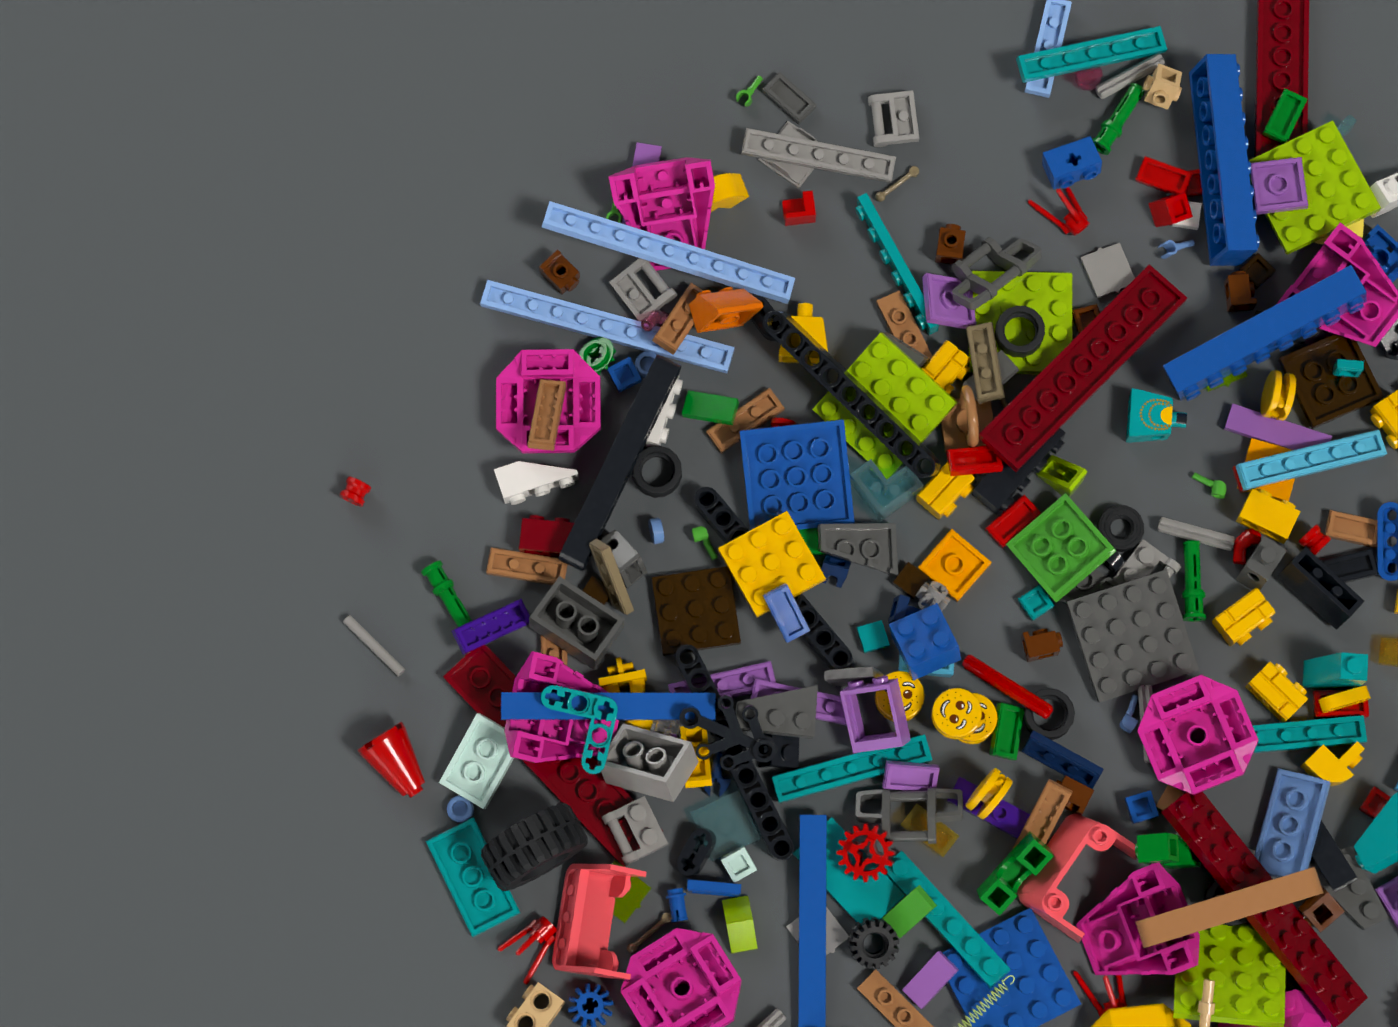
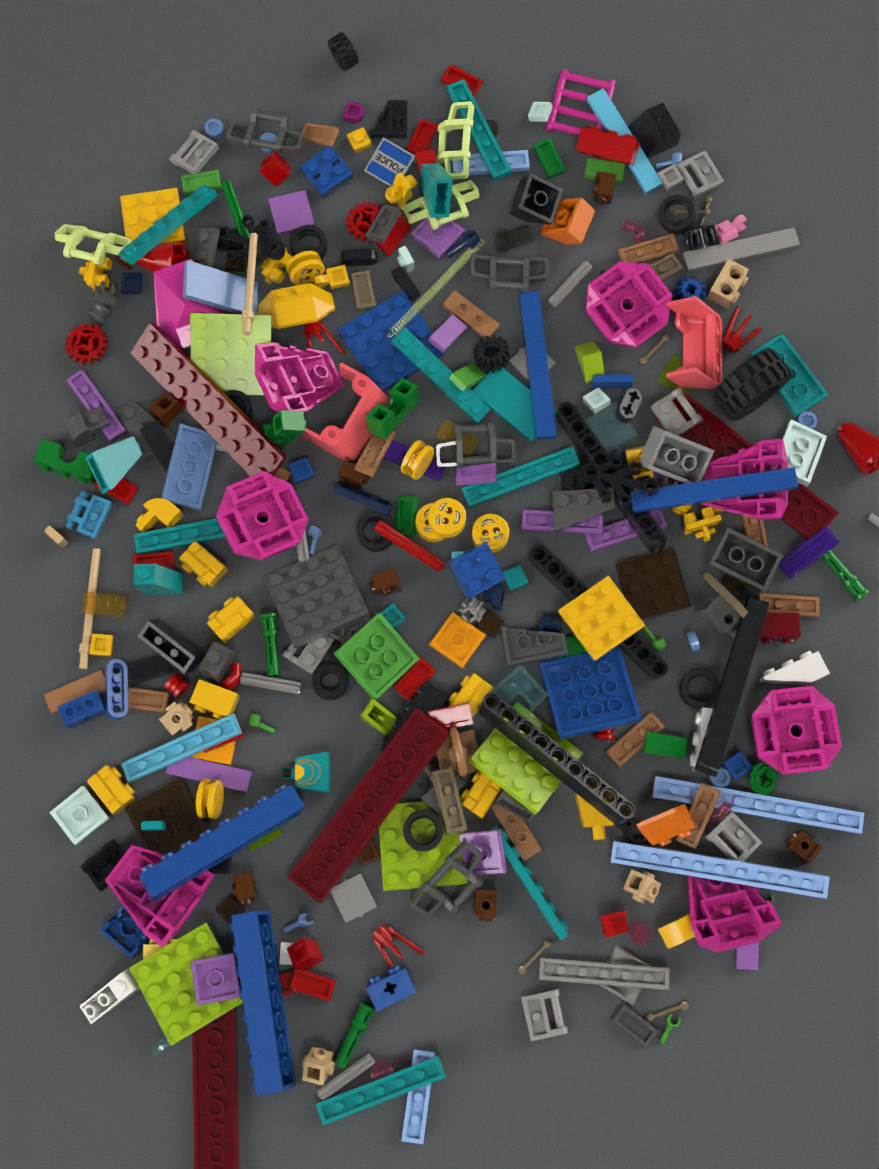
camera: 170 degrees right, 0 degrees up
(547, 414) = (797, 715): medium nougat plate -> none
(592, 712) = (725, 480): teal beam -> none
(677, 904) = (638, 371): blue pin -> none
(728, 114) = (683, 1005): none -> dark tan hinge
(761, 244) = (642, 886): none -> tan brick
(770, 195) = (640, 933): none -> clear pink plate
(786, 613) = (586, 578): tile -> none
(841, 677) = (526, 541): flat silver tile -> none
(854, 722) = (508, 495): medium lavender window -> none
(854, 848) = (514, 413): red gear -> none
(1229, 907) = (233, 388): medium nougat beam -> none
(1285, 116) = (211, 1048): green tile -> none
(1315, 498) = (171, 718): none -> tan brick
(1344, 699) = (160, 558): yellow beam -> none

